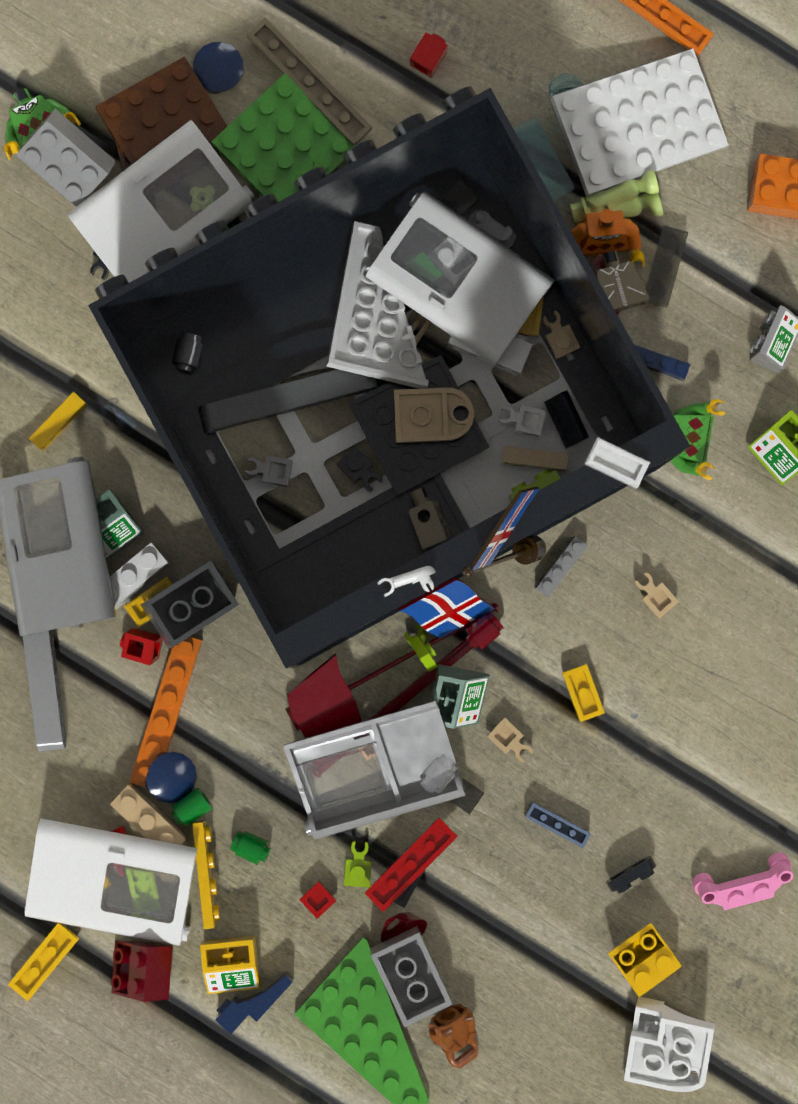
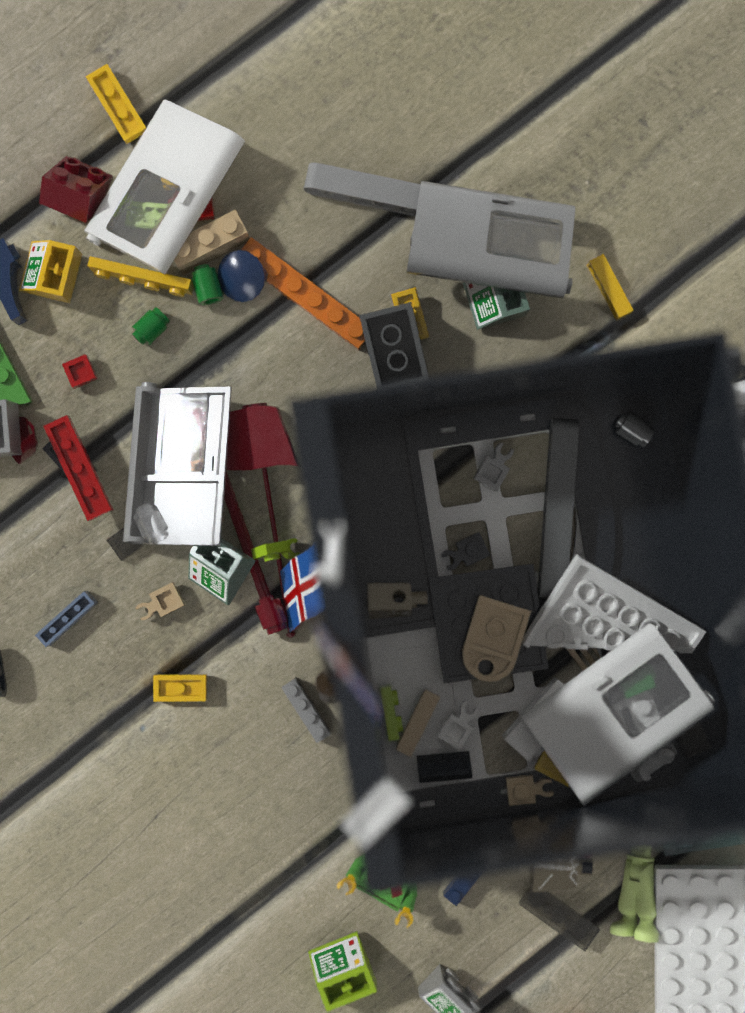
camera: 110 degrees right, 0 degrees up
(134, 651) = (372, 290): red brick -> none
(137, 573) = (440, 309): white brick -> none
(357, 869) = (95, 418): lime plate -> none
(608, 232) = (610, 879): orange torso -> none
(658, 597) = (243, 791): tan plate -> none

